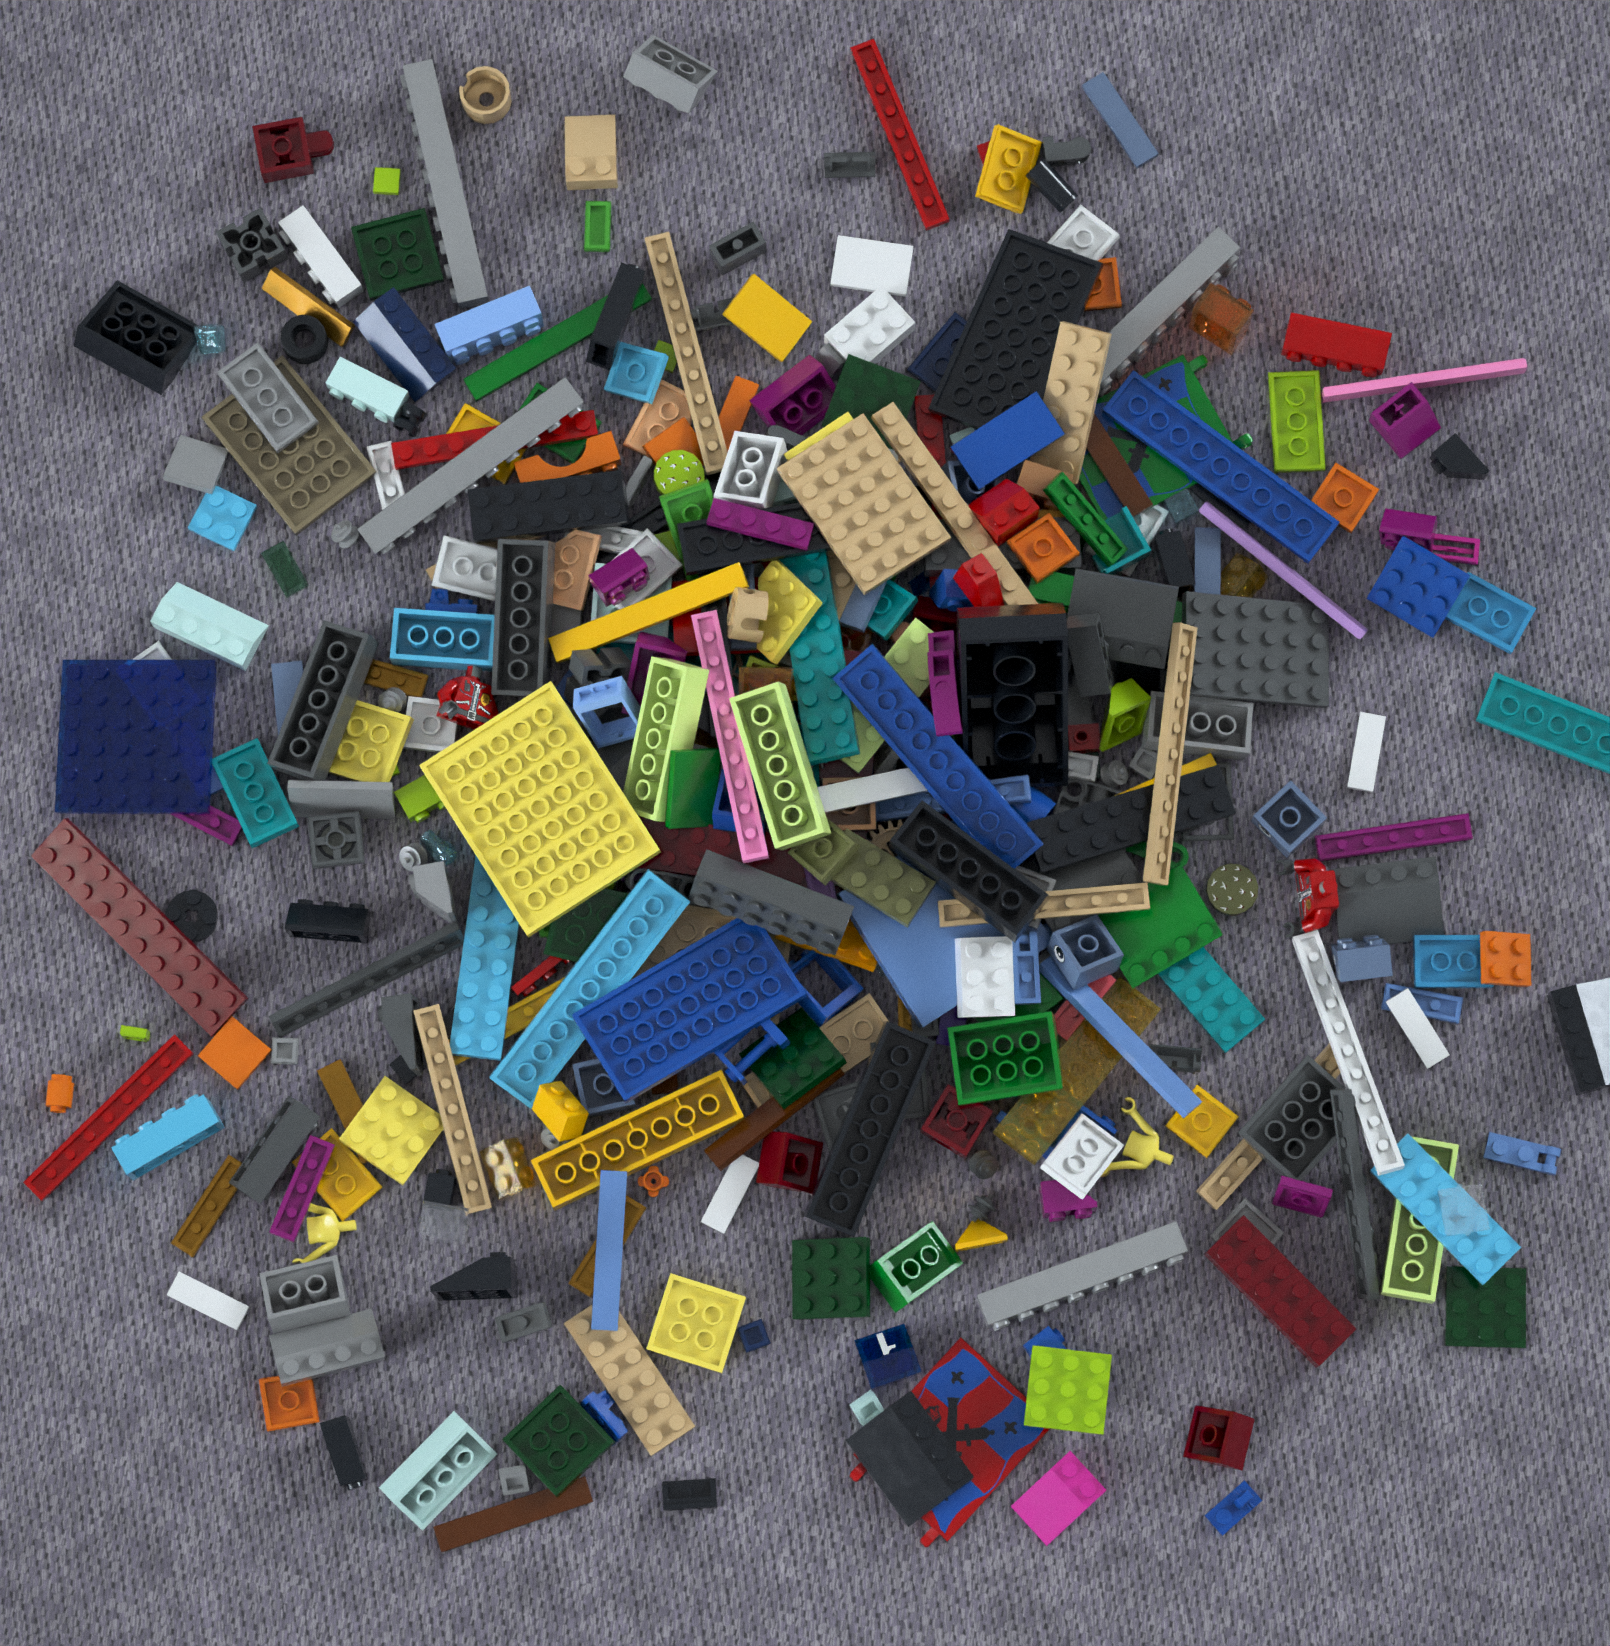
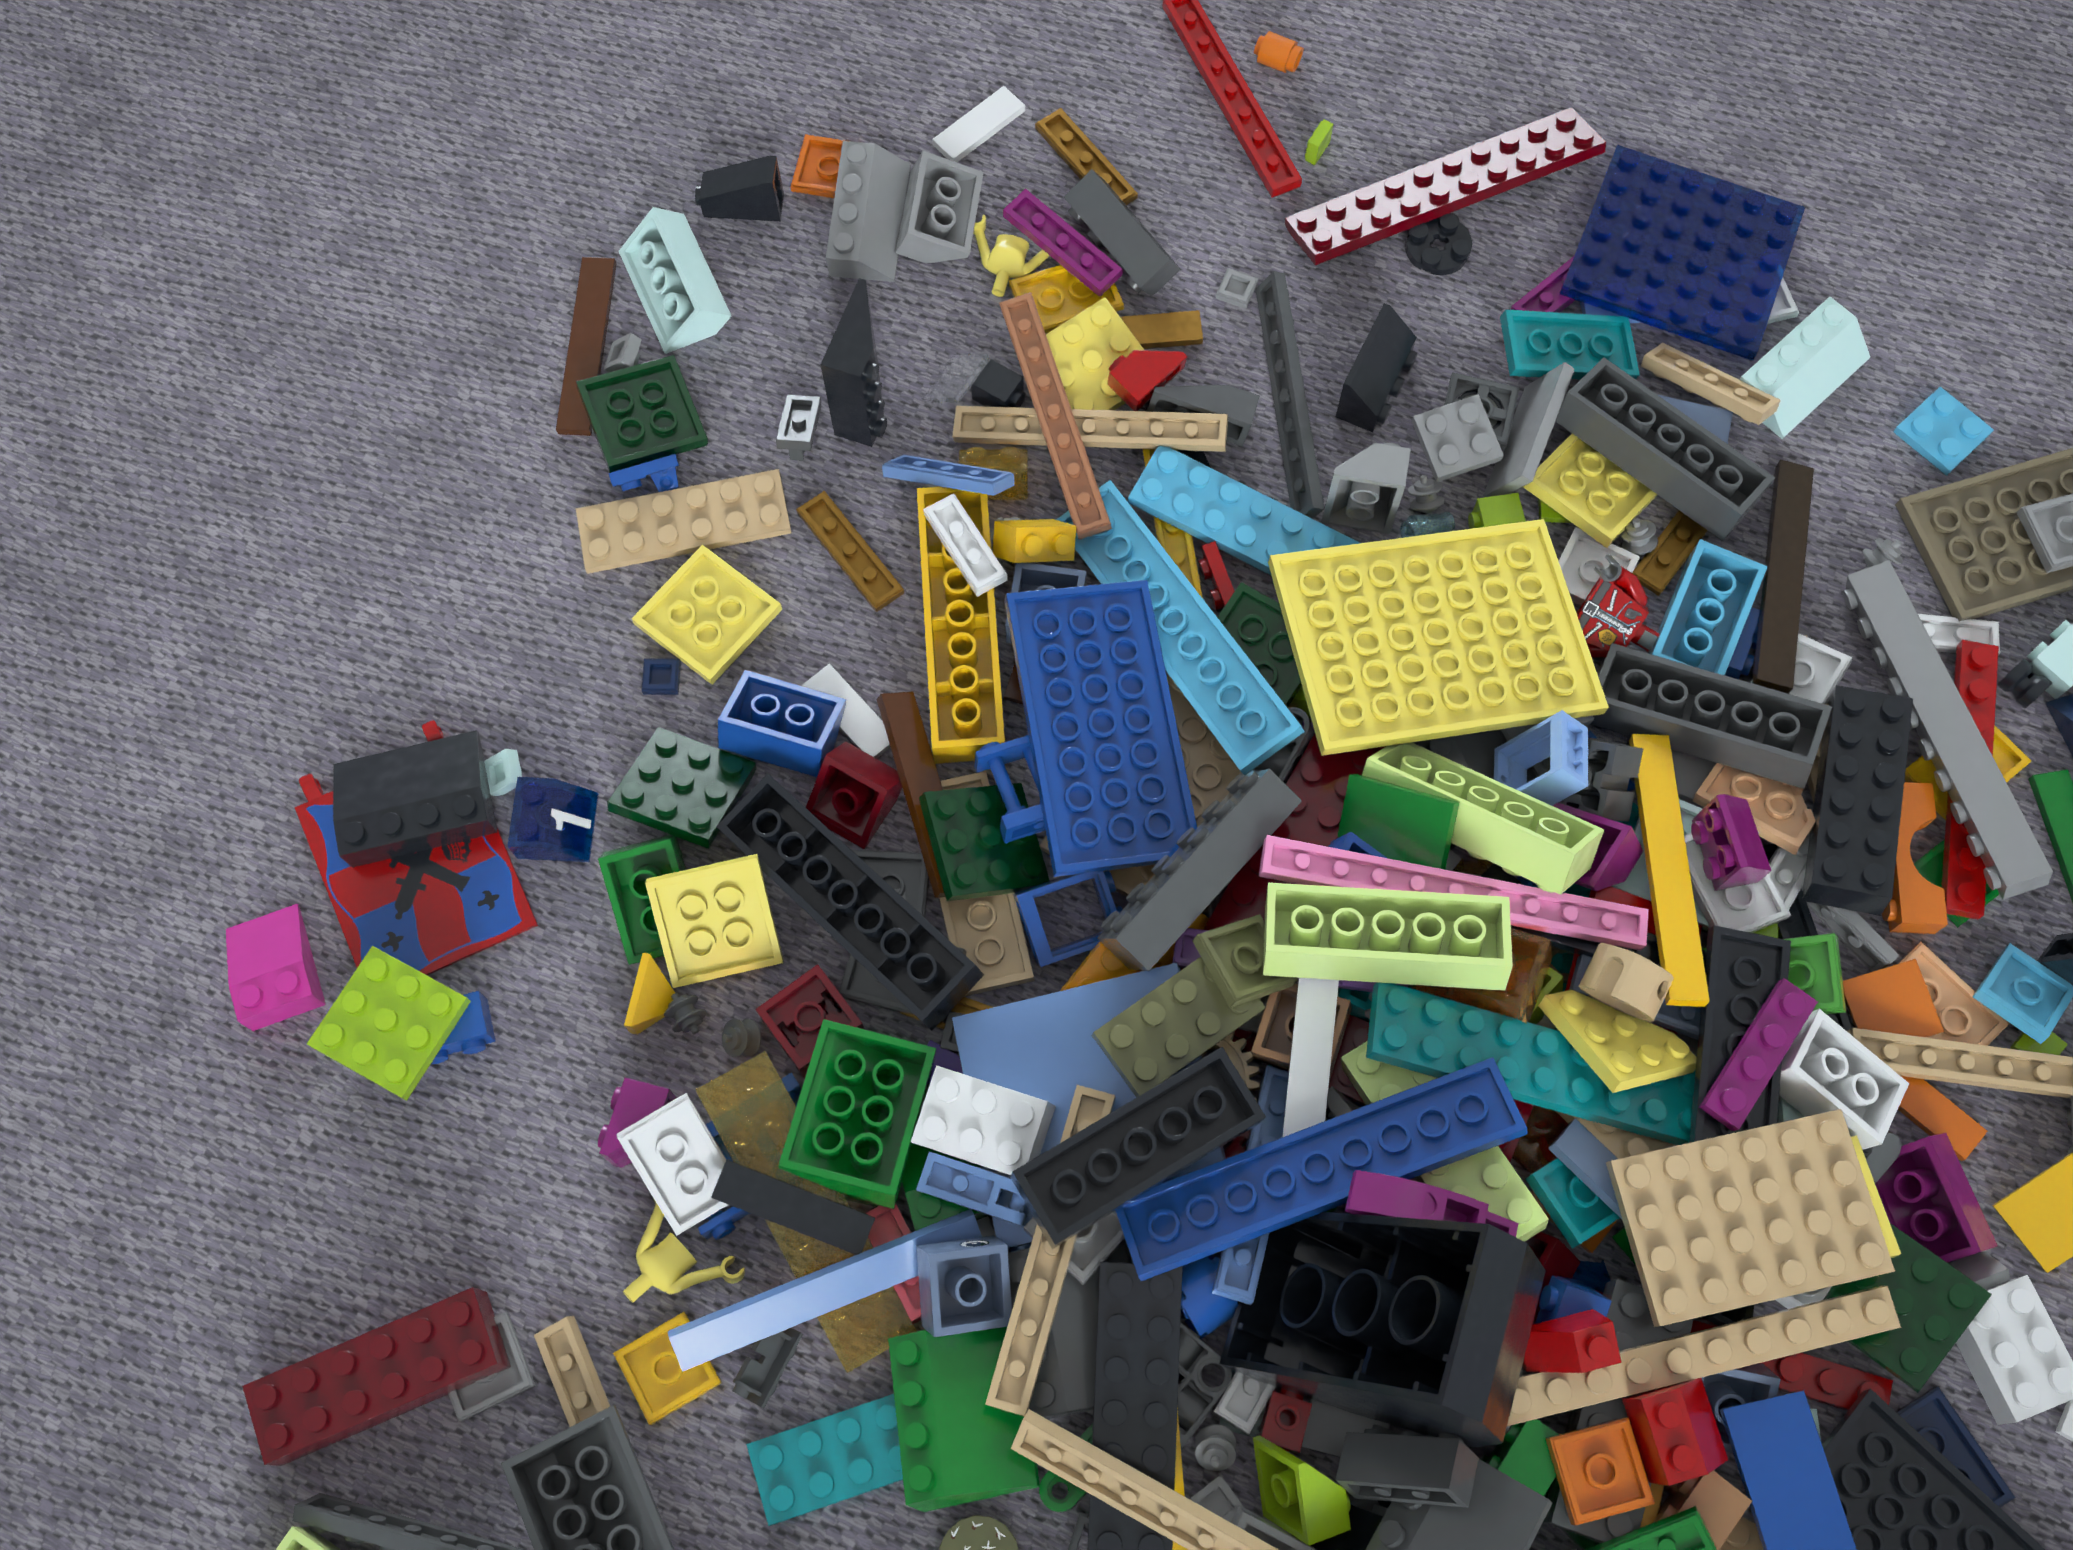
camera: 110 degrees right, 10 degrees down
(167, 1137) = (1182, 128): medium azure brick -> none
(196, 464) = (2024, 418): light grey tile -> none
(234, 1053) = (1255, 237): orange tile -> none
(251, 686) = (1710, 383): none -> tan plate
(284, 569) = (1853, 477): clear green tile -> none
(369, 845) = (1457, 438): none -> light grey plate
(390, 596) = (1784, 577): none -> dark brown tile
(398, 1083) = (1141, 372): none -> red slope
(452, 1136) = (1055, 416): none -> nougat tile
(532, 1191) = (948, 474): none -> medium blue tile
(585, 1153) = (965, 544): none -> white tile
(609, 1250) = (837, 535): medium blue tile -> none
(653, 1173) = (904, 619): orange plate -> none
(676, 471) = (1868, 991): lime tile -> none
(689, 1494) = (506, 533): black hinge -> none
(759, 1231) = (780, 723): none -> blue slope
(916, 1211) = (714, 920): none -> light yellow plate
(1080, 1075) = (793, 1207): none -> black tile
(1081, 1275) = (527, 1107): light grey brick -> none
(1219, 1437) = (232, 1207): dark red slope -> none
(1233, 1508) = (139, 1190): blue hinge -> none
(1302, 1196) = (485, 1466): magenta tile -> none

